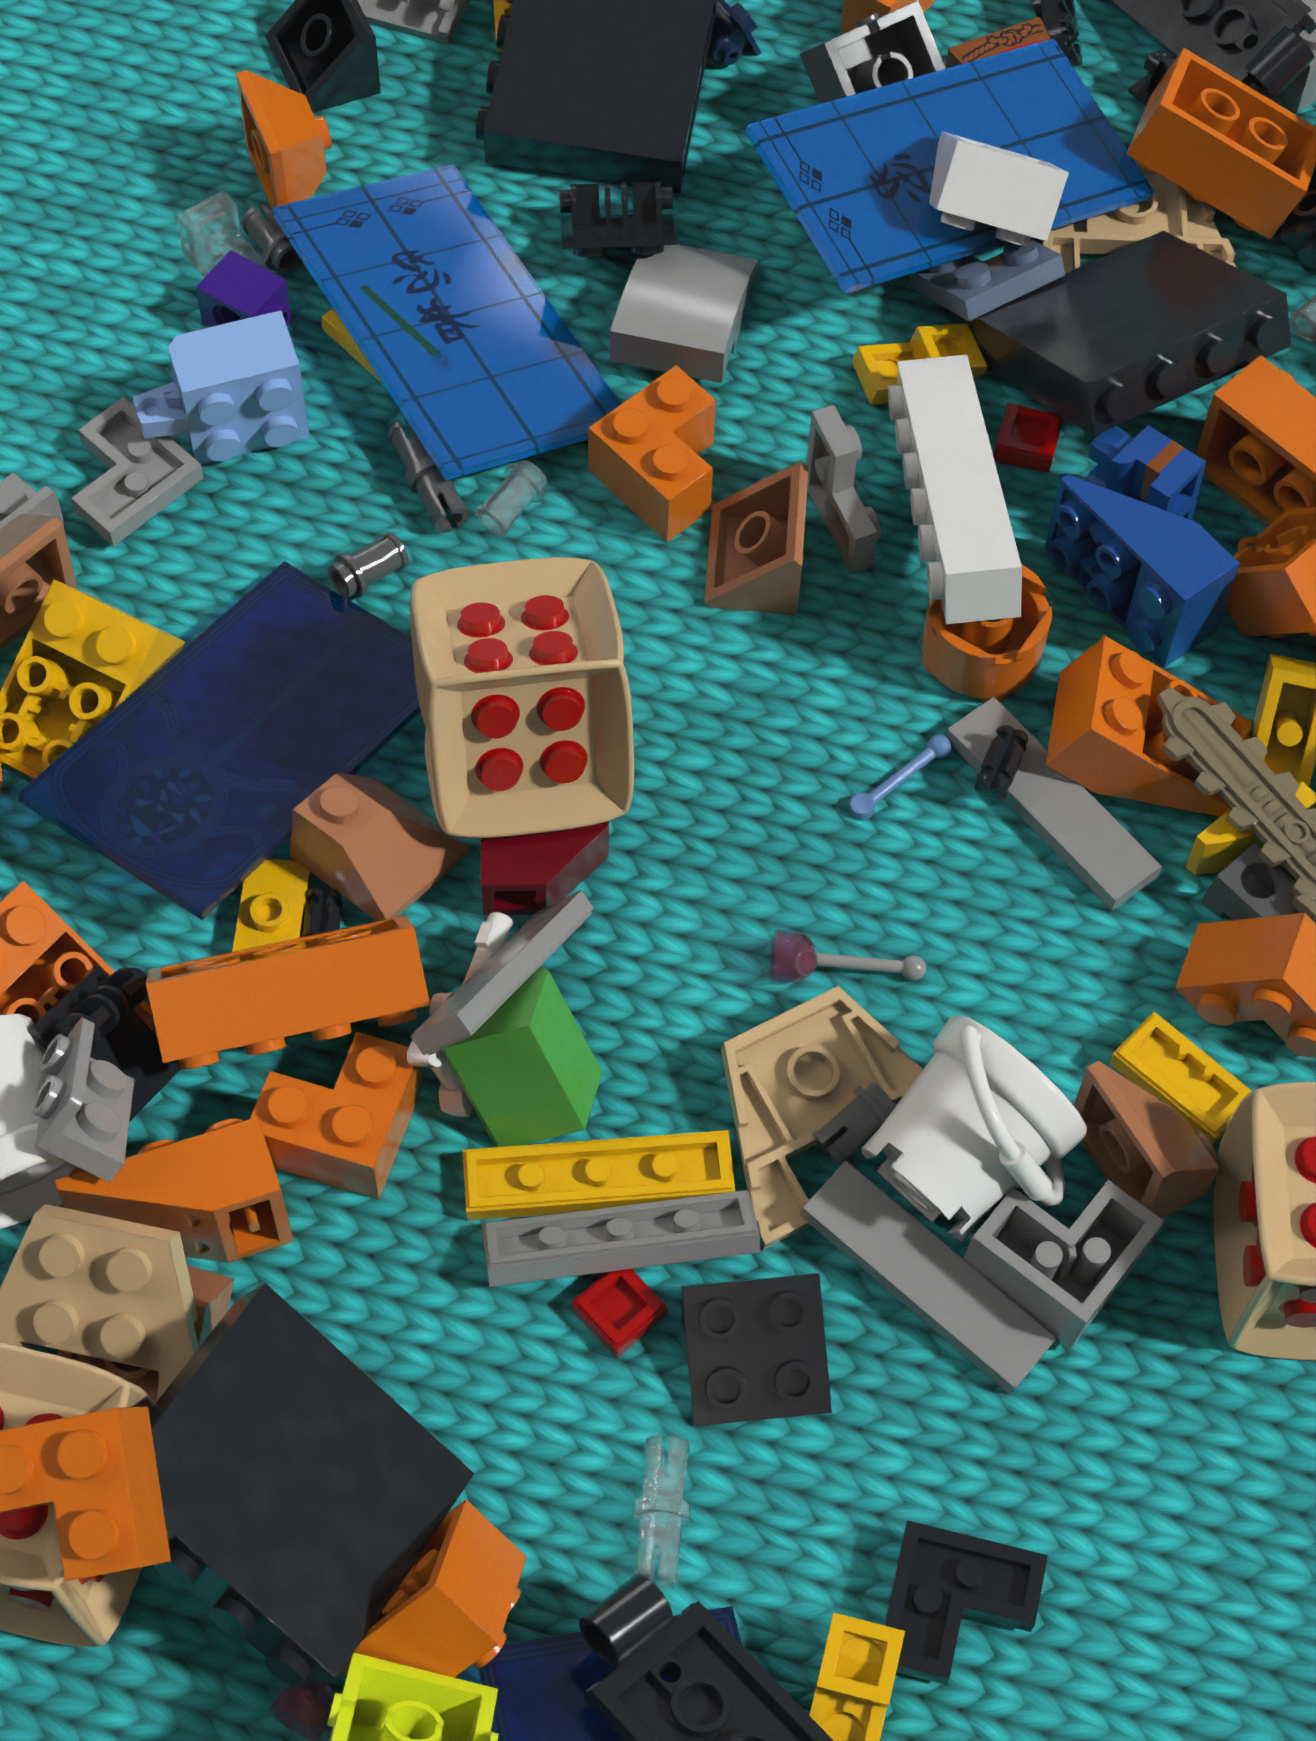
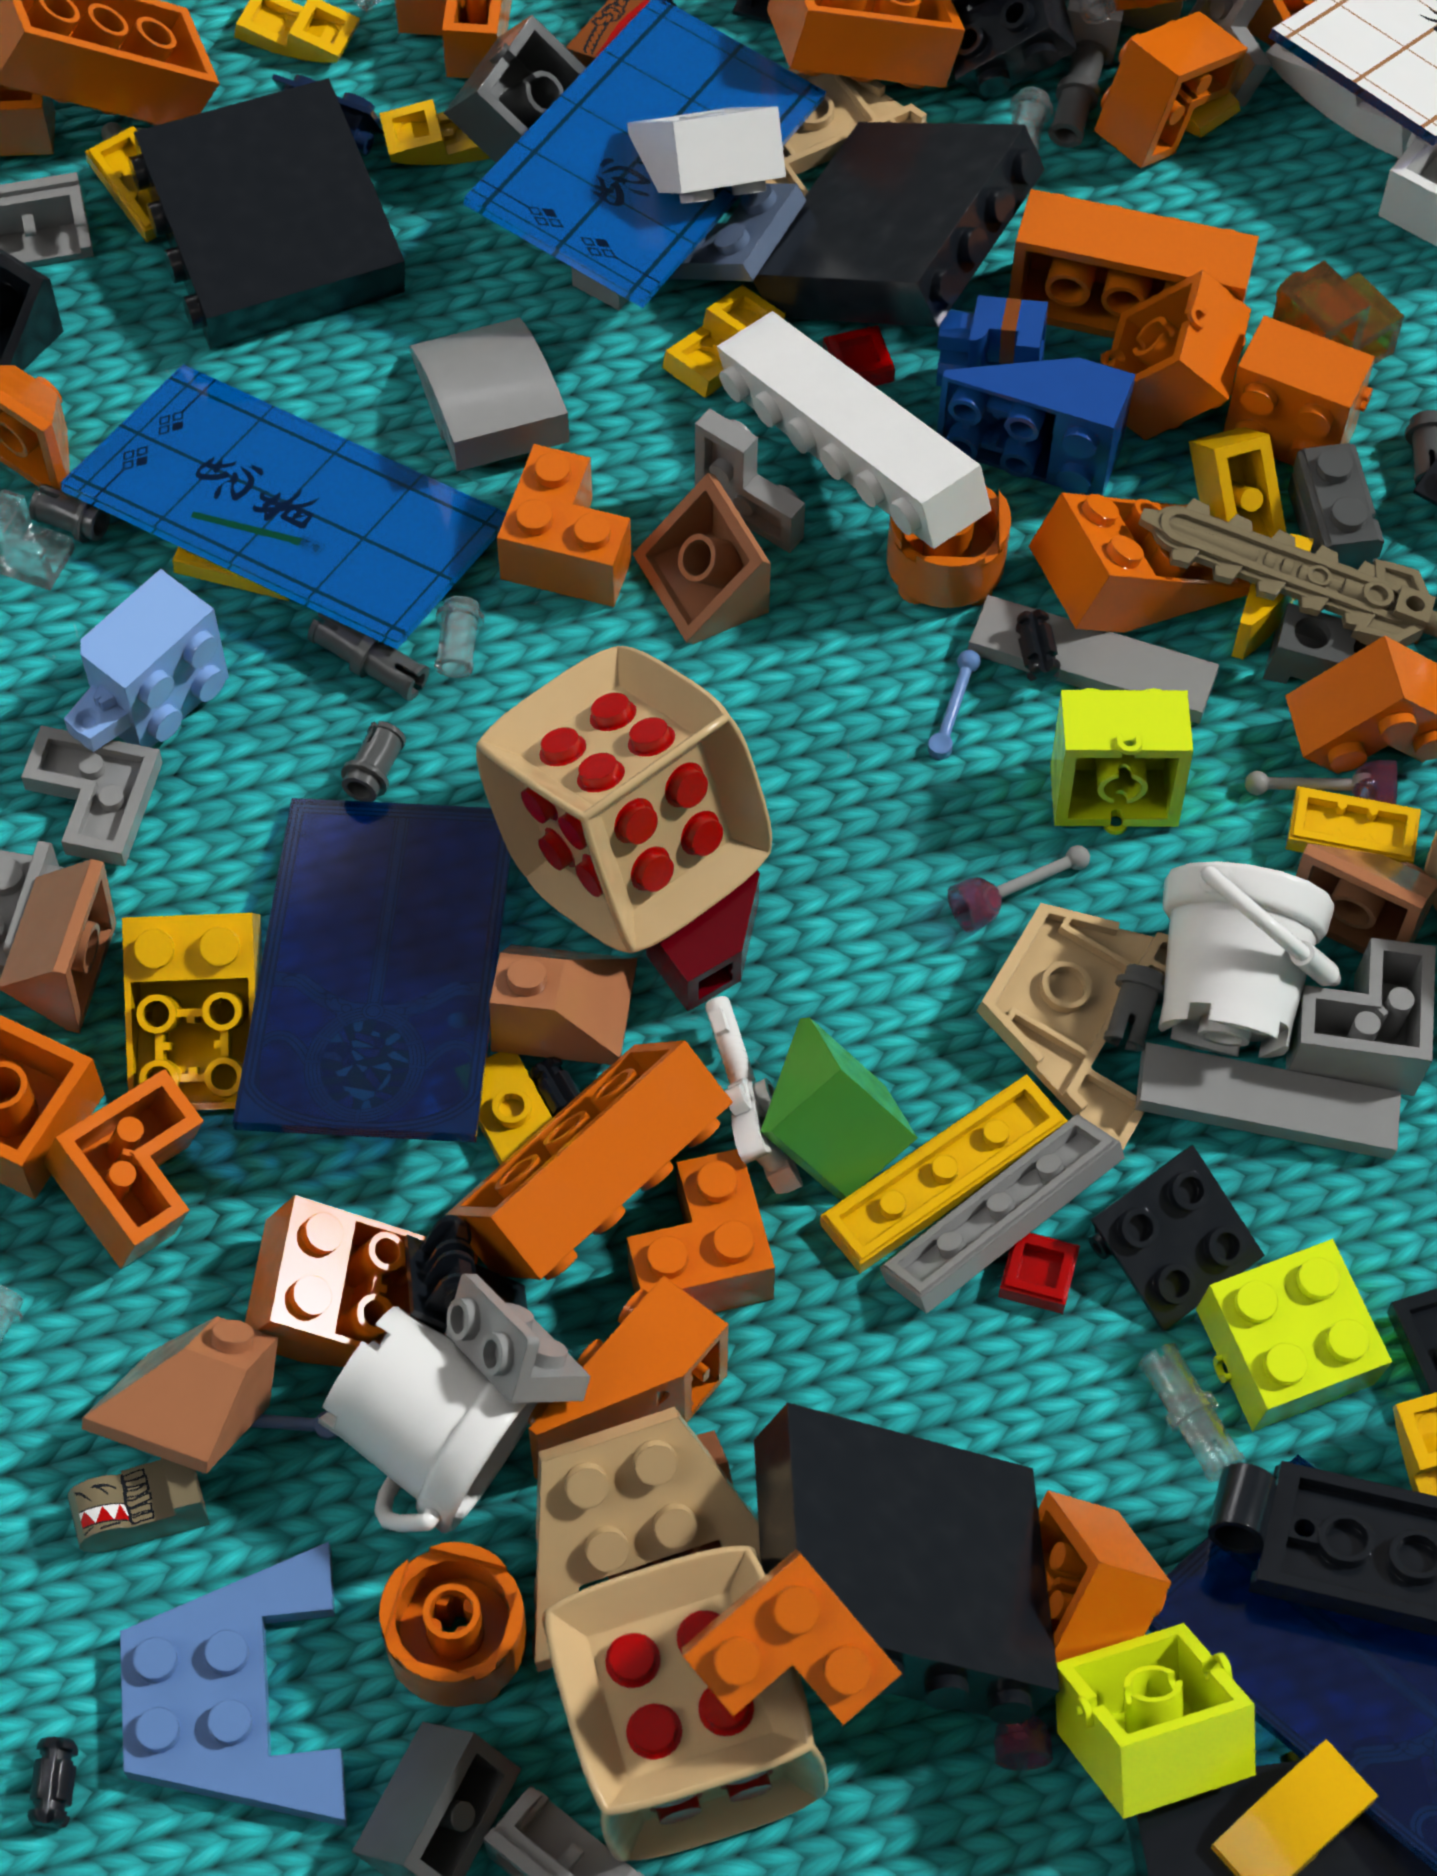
camera: 30 degrees left, 0 degrees up
(240, 291) = (86, 581): dark purple brick -> none
(502, 974) = (768, 1043): light grey tile -> none
(643, 231) = (395, 341): black hinge -> none
(778, 70) = (425, 137): none -> yellow slope
(793, 1495) = (1292, 1335): none -> neon yellow brick
(997, 896) = (1121, 758): none -> neon yellow brick
(1229, 1046) = (1371, 781): none -> hinge

